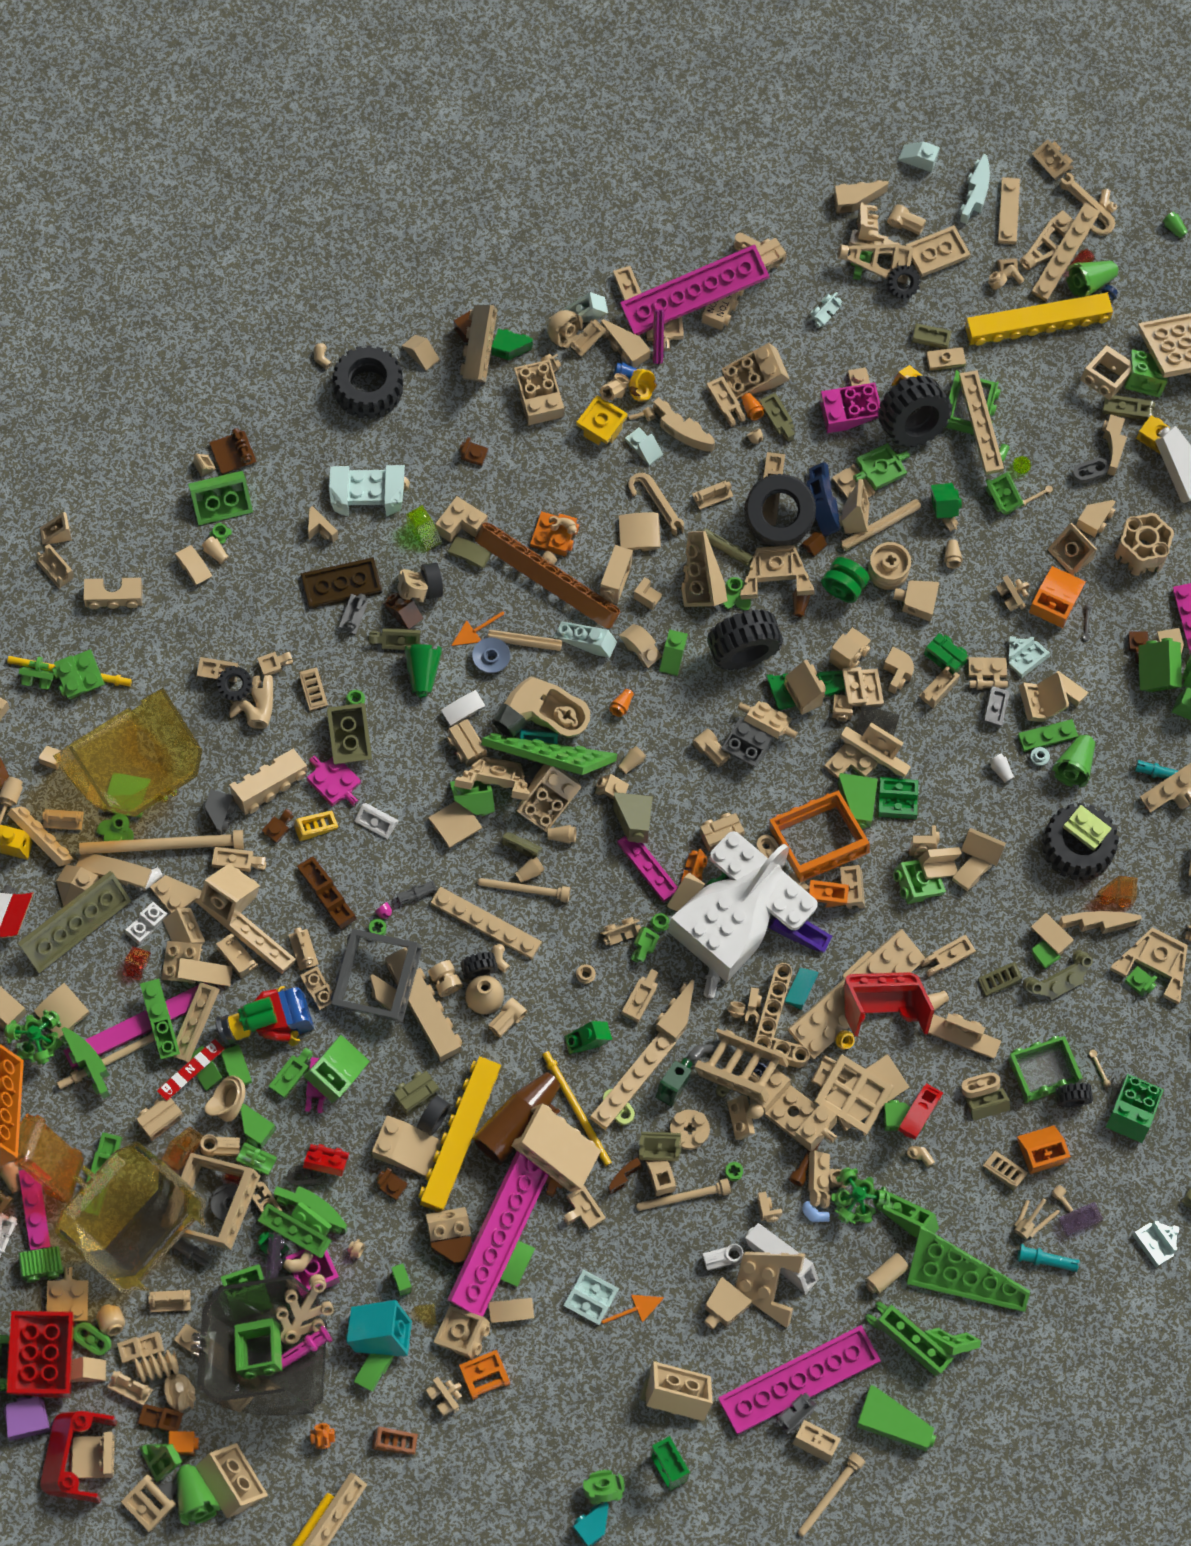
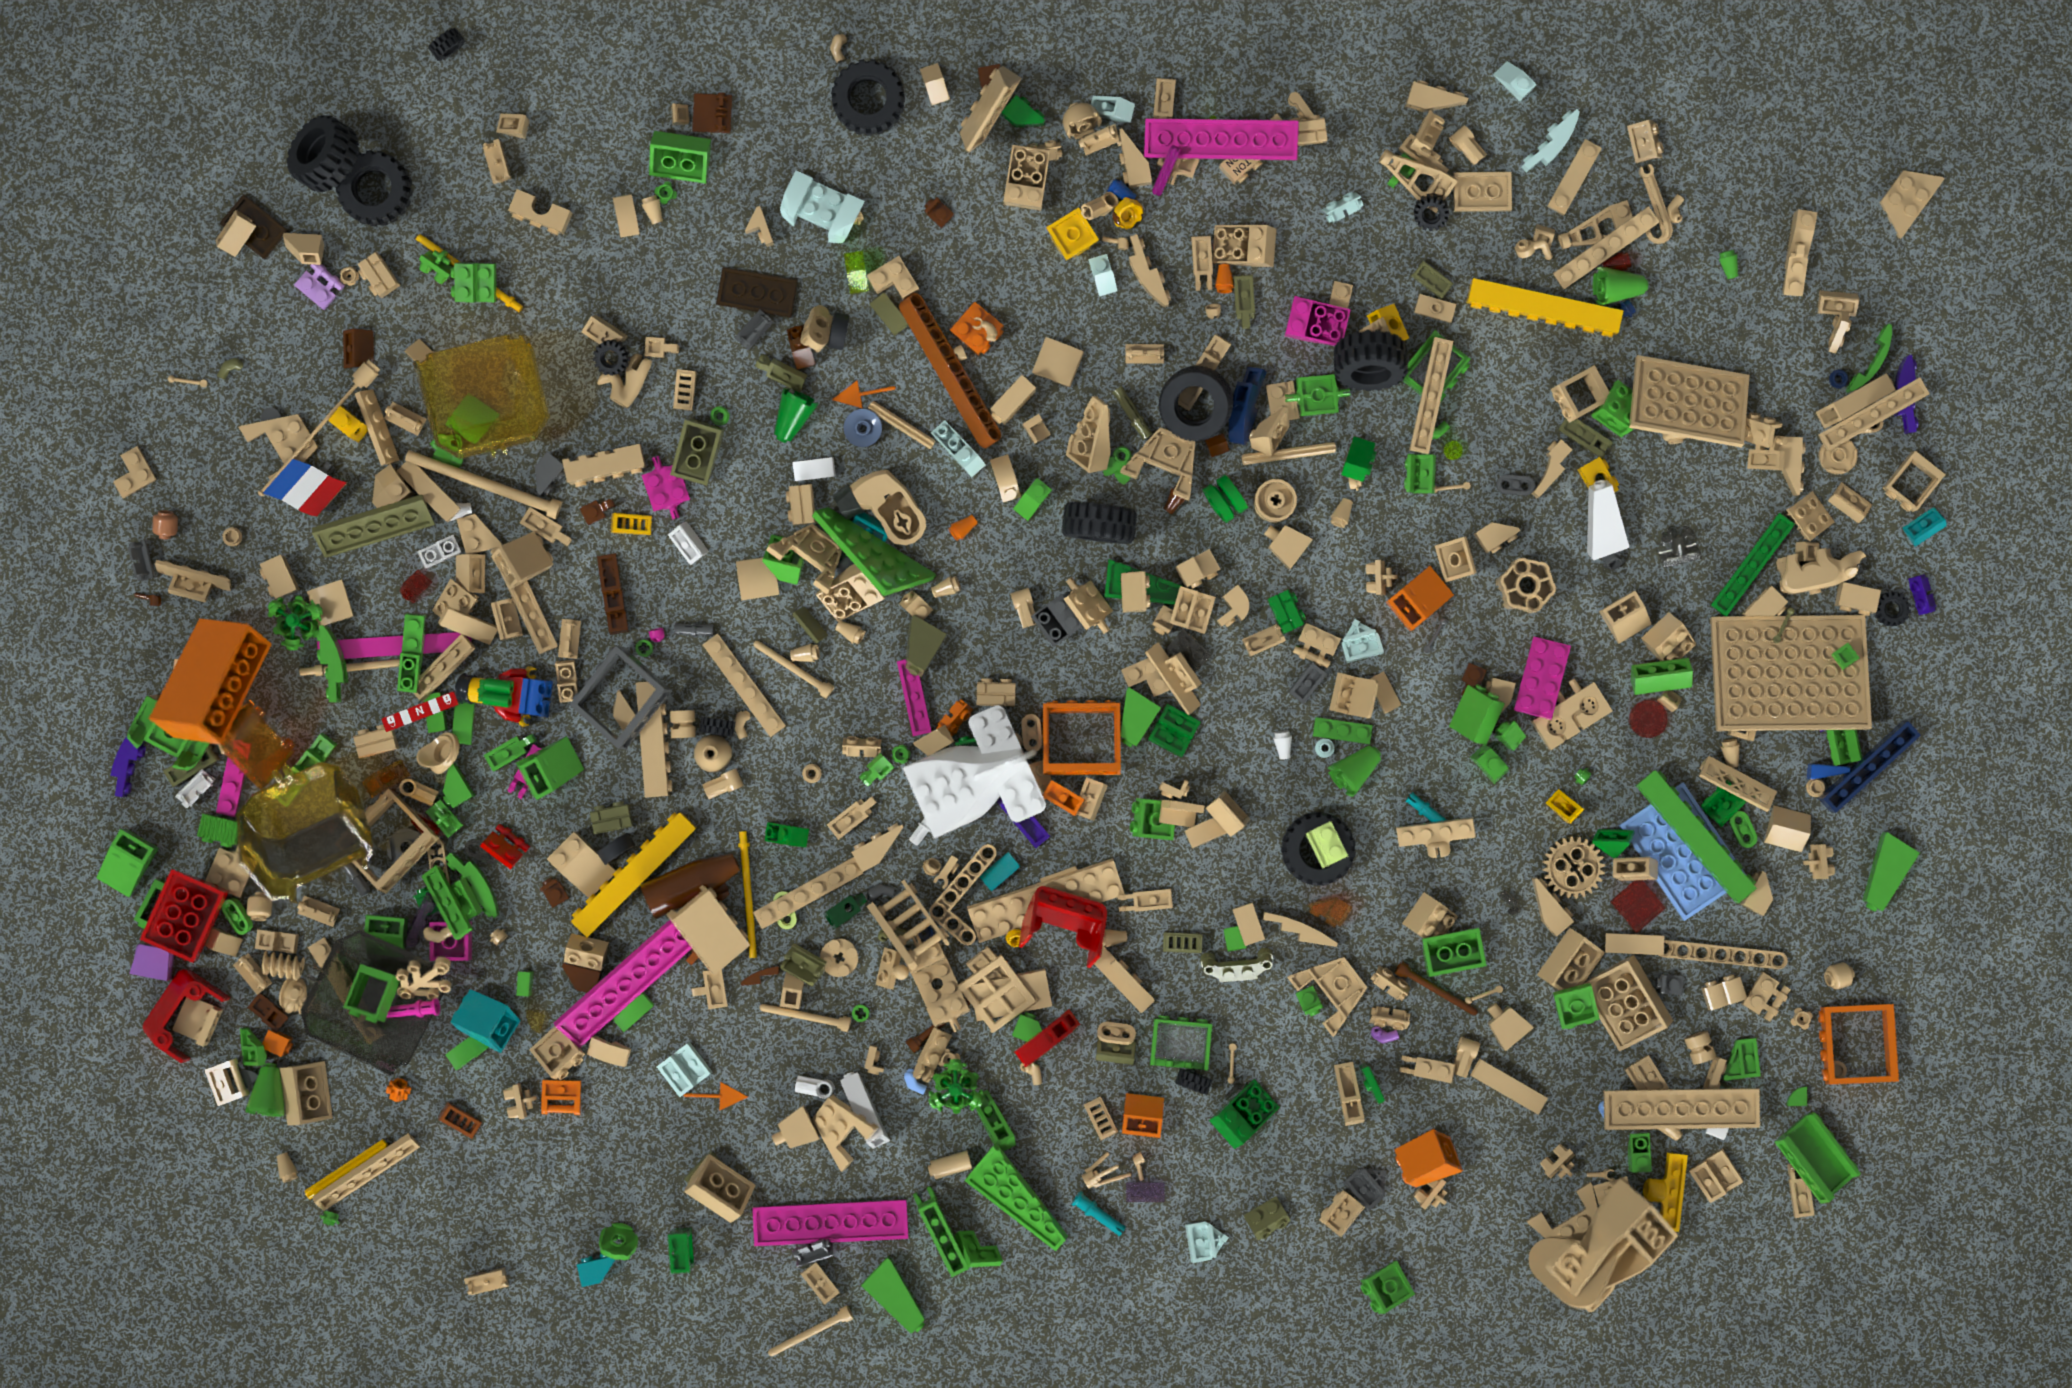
camera: 30 degrees right, 20 degrees up
(659, 499) = (1091, 335): tan piece -> none

